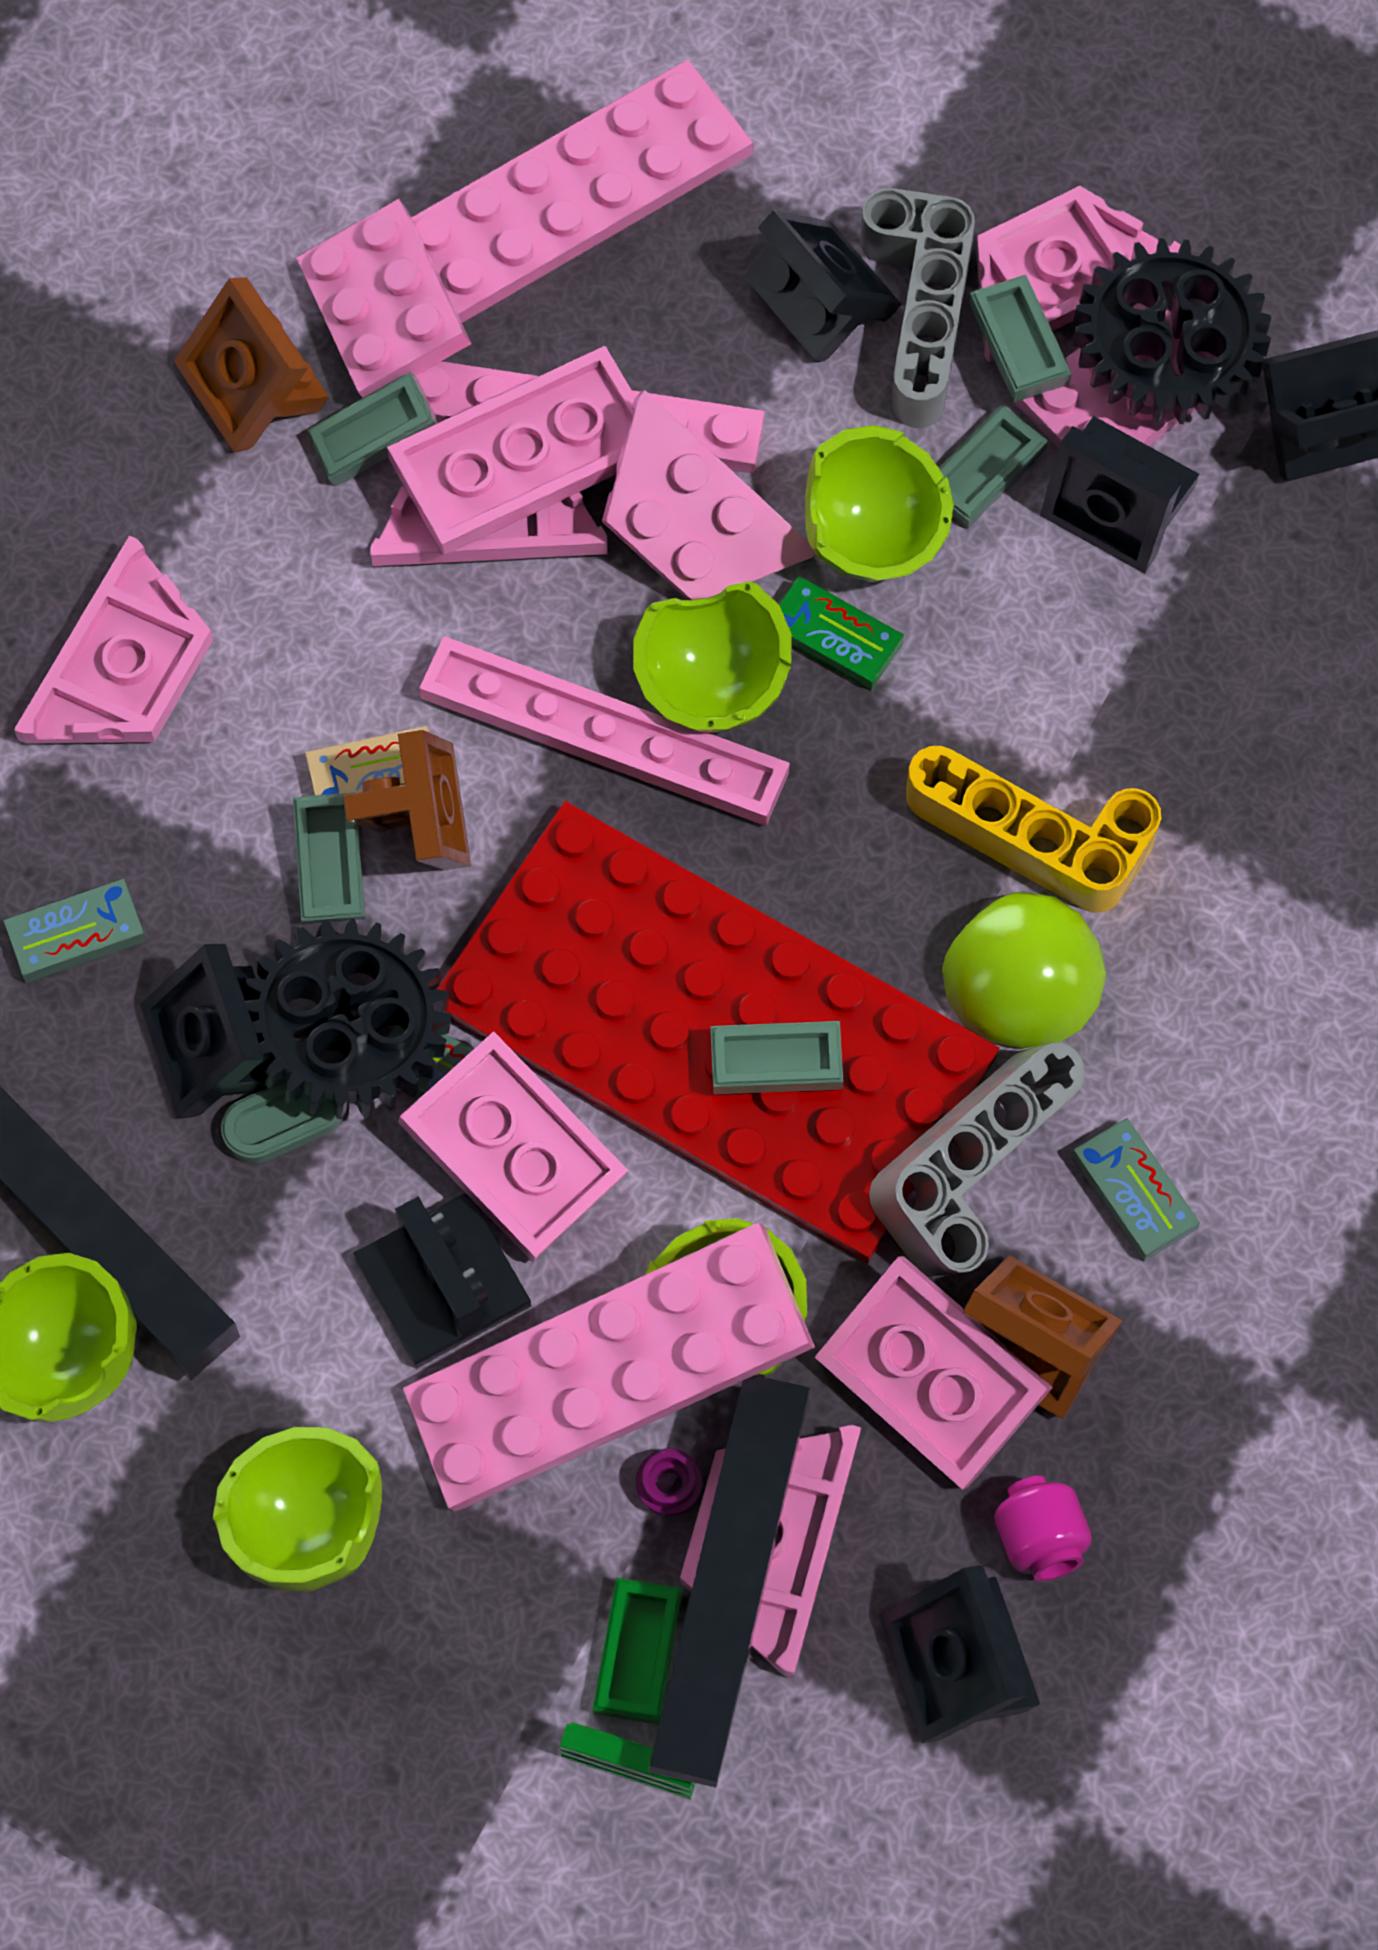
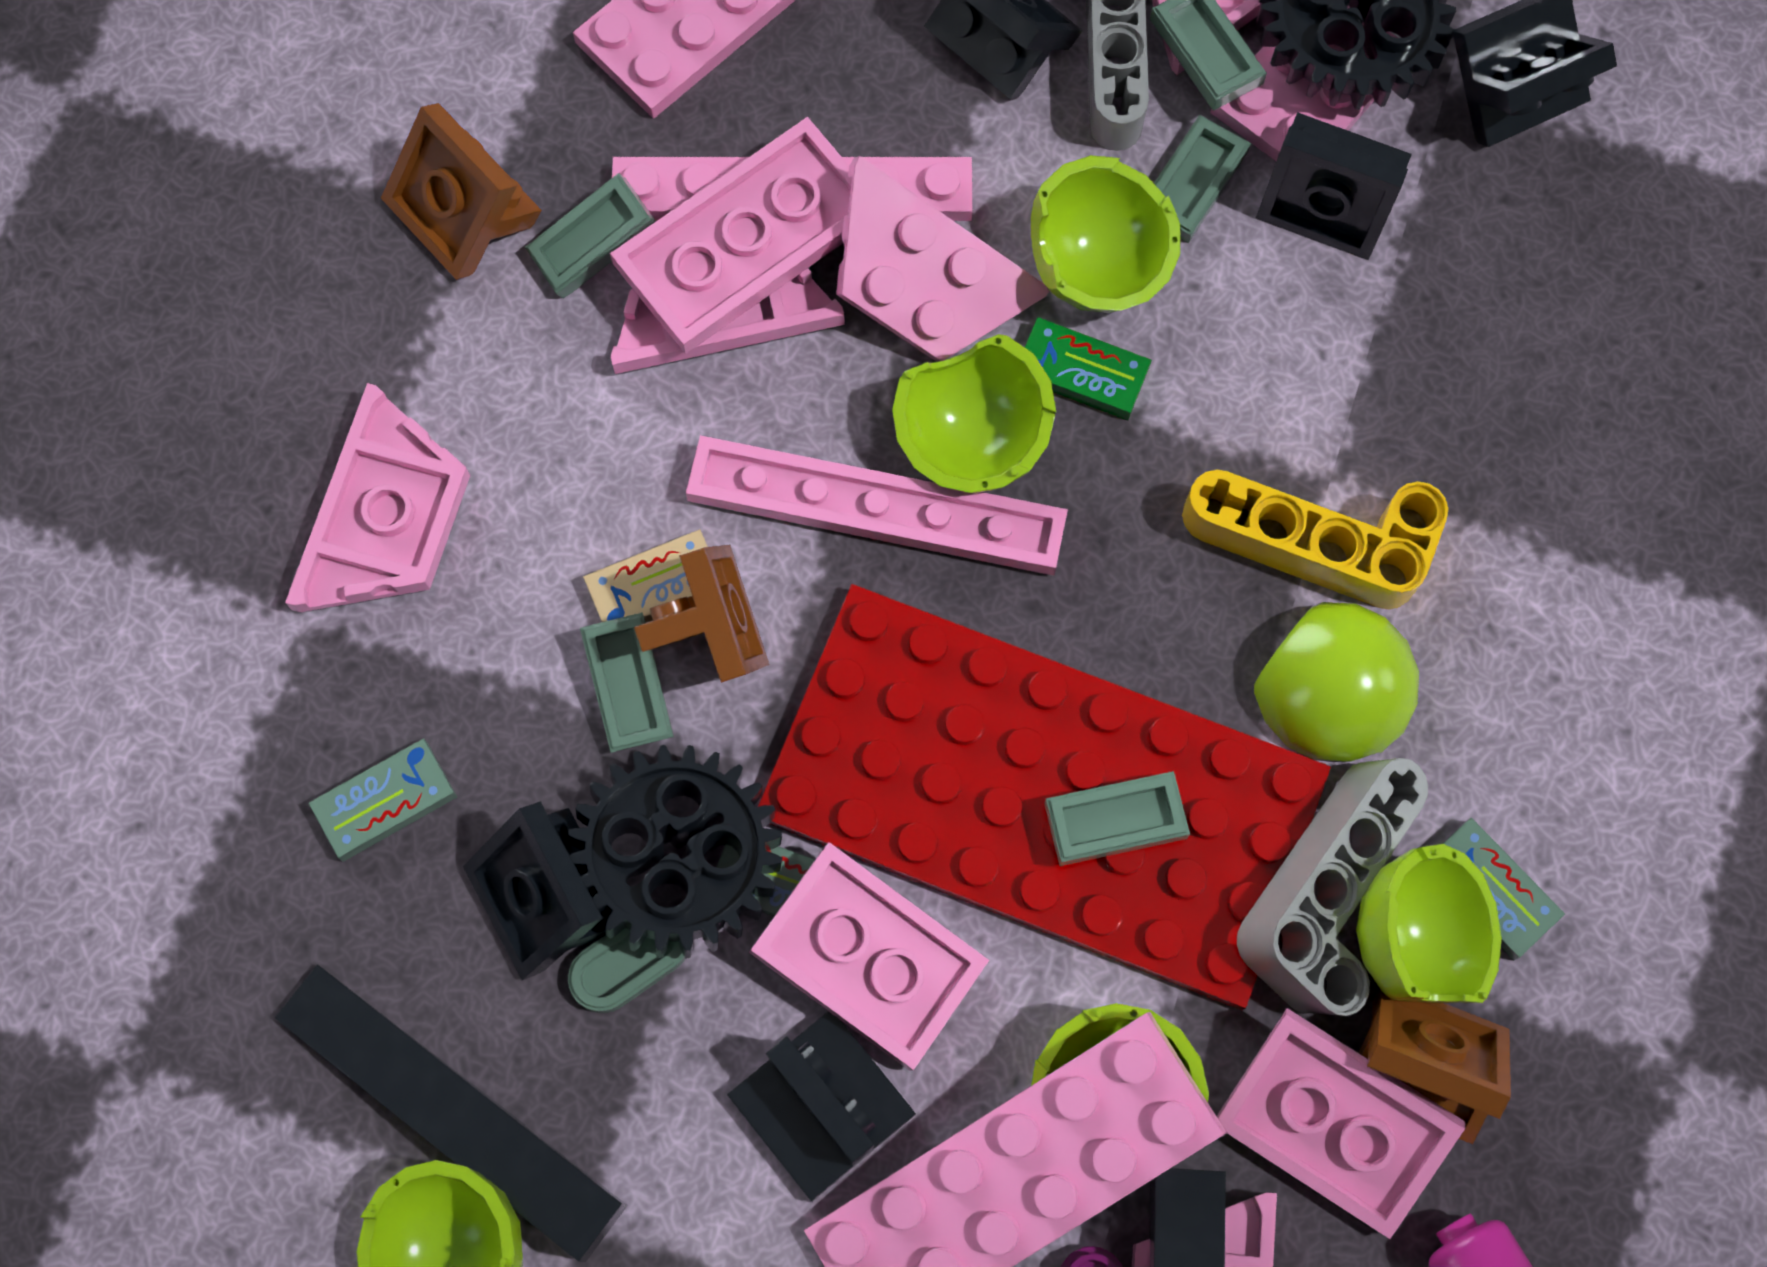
camera: 10 degrees left, 5 degrees up
(383, 299) = (577, 104): bright pink plate -> none
(1059, 1206) = (1430, 928): none -> lime cylinder

